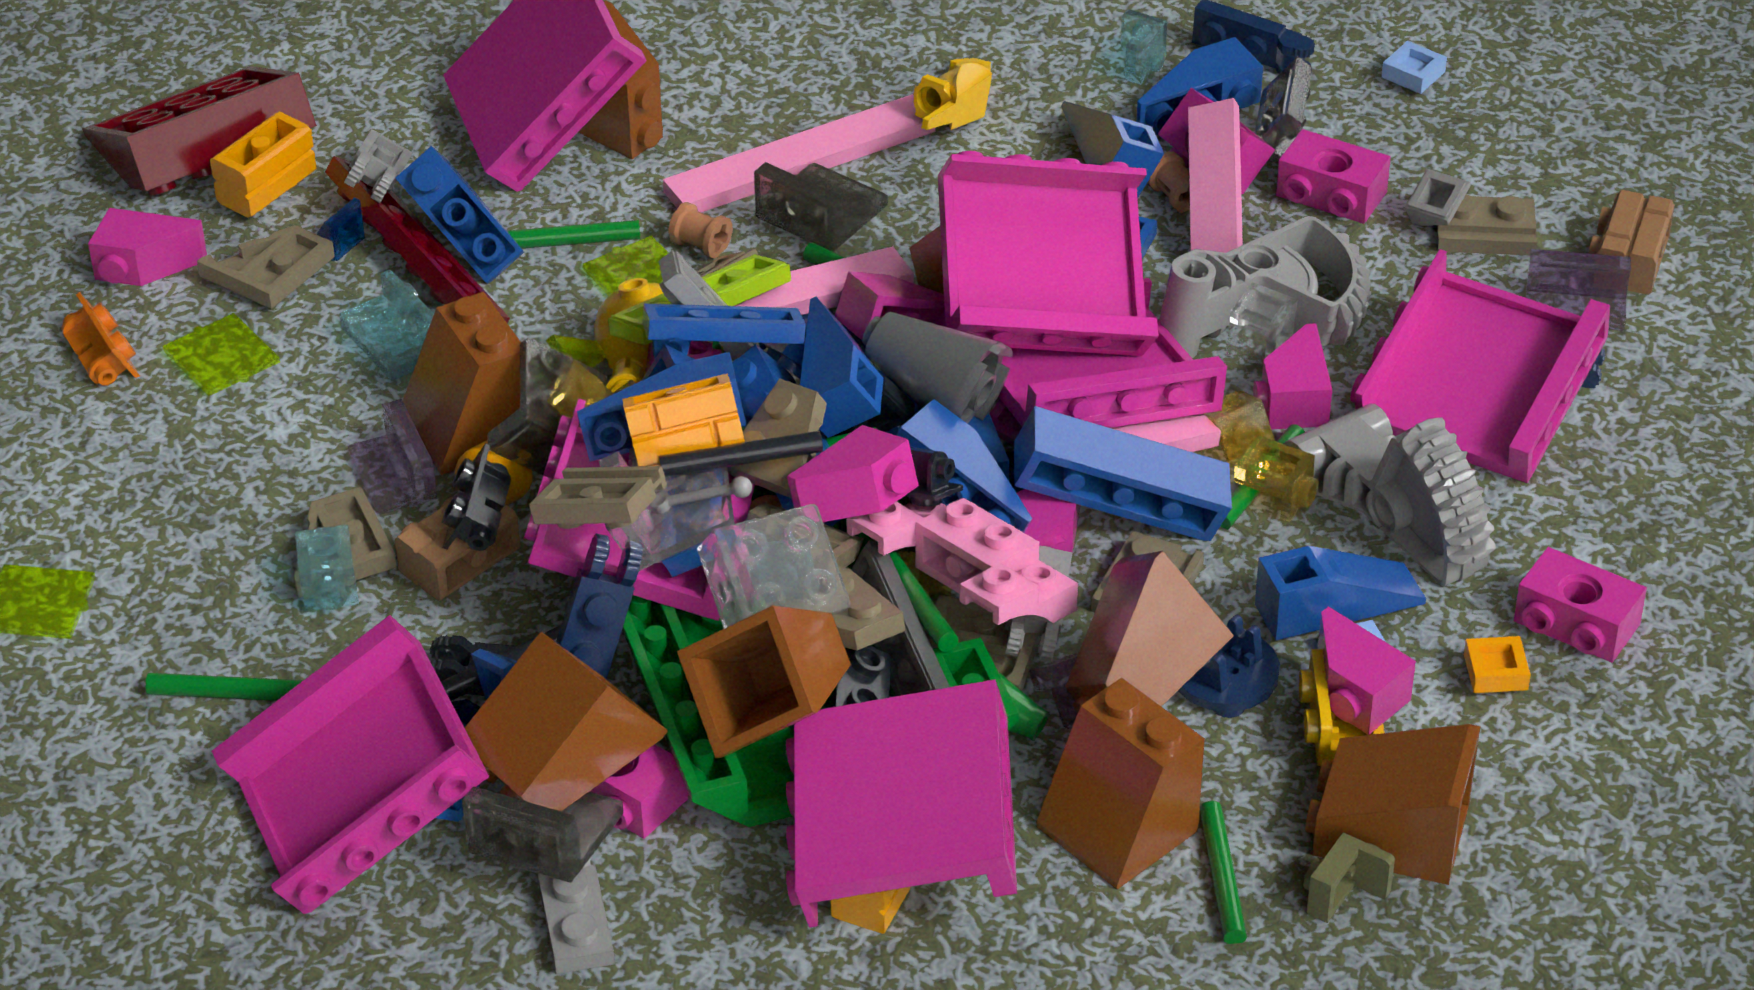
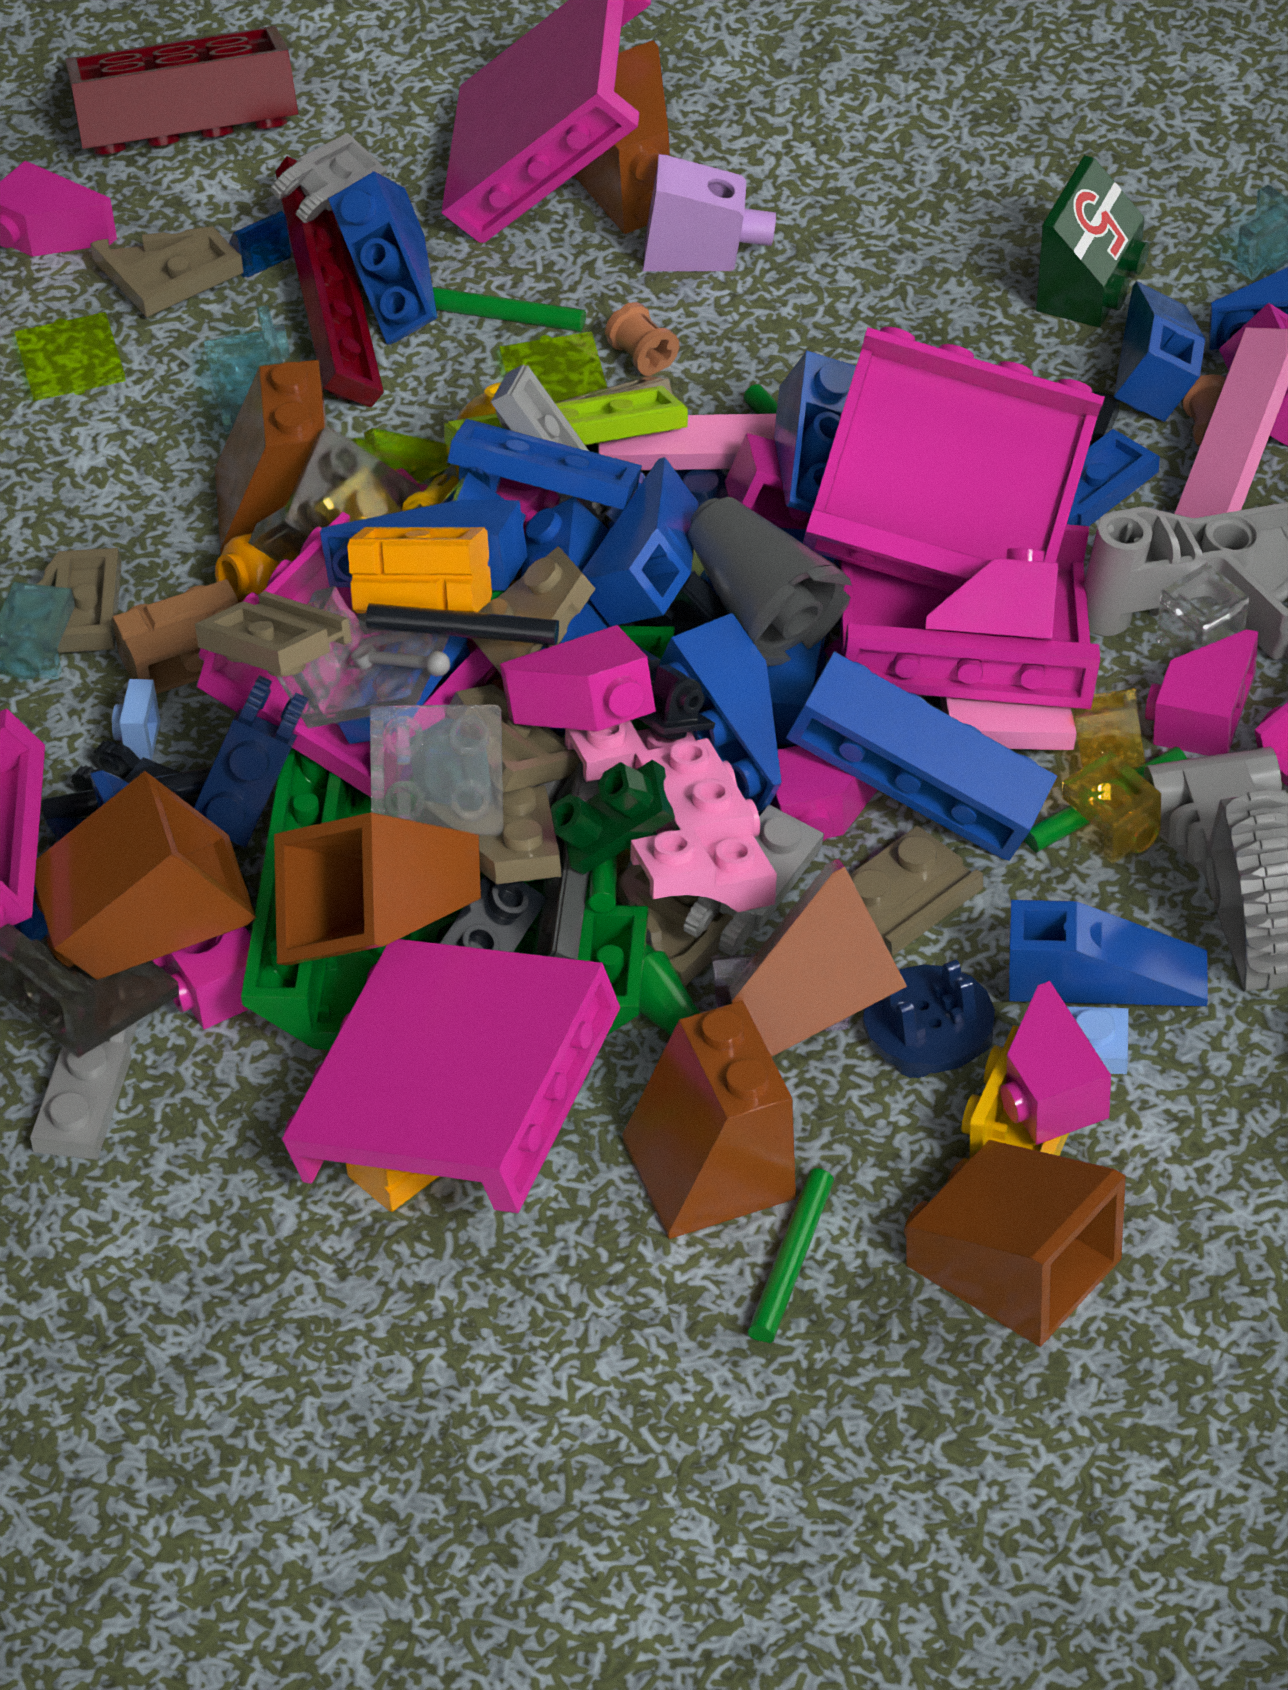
camera: 25 degrees right, 5 degrees up
(263, 164) = (213, 147): light orange brick -> none
(396, 465) = (173, 530): clear purple panel -> none
(455, 613) = (138, 718): none -> light blue plate
(476, 508) = (220, 581): black hinge -> none
(698, 127) = (700, 218): none -> lavender torso
(815, 203) = (777, 336): clear smoke bracket -> none
(825, 145) = (809, 274): bright pink tile -> none
(903, 252) = (807, 423): none -> blue slope
(935, 571) = (626, 808): none -> dark green hips
(954, 96) = (1001, 248): yellow animal -> none
(1022, 86) = (1089, 248): none -> dark green slope
(1135, 337) = (1003, 599): none -> dark pink slope
(1345, 866) = (910, 1296): olive bracket -> none
(1497, 664) = (1240, 1103): light orange plate -> none

